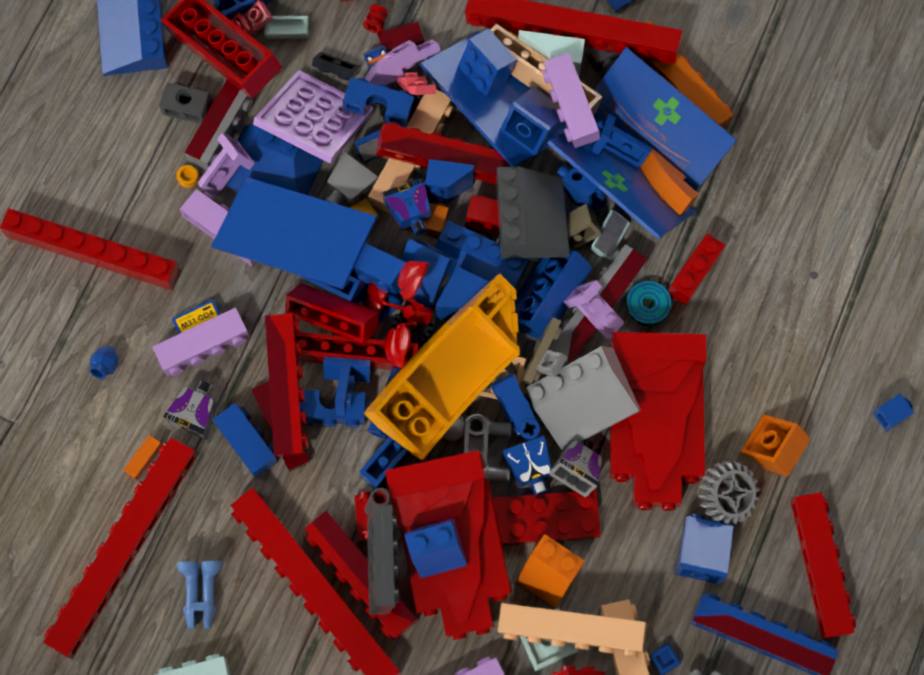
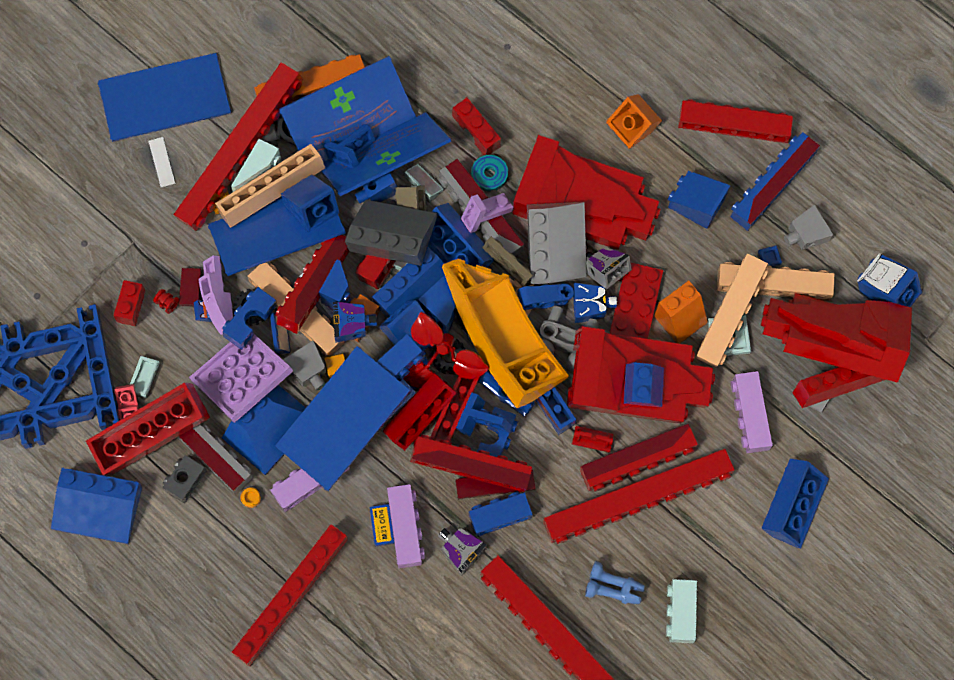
camera: 75 degrees left, 0 degrees up
(103, 362) = (394, 610): blue rock -> none
(143, 458) = (486, 601): orange piece -> none
(225, 165) = (257, 458): lavender bracket -> none
(330, 64) = (197, 345): black plate -> none
(381, 553) = (633, 429): dark grey hinge -> none
(416, 85) = (245, 284): coral slope -> none
(487, 62) = (248, 220): blue brick -> none
(551, 363) = (523, 254): light grey tile -> none
(571, 100) = (311, 165): lavender brick -> none
(669, 182) = (399, 121): orange slope -> none
(723, 481) = (661, 165): light grey gear -> none
(894, 412) = (636, 29): blue brick -> none

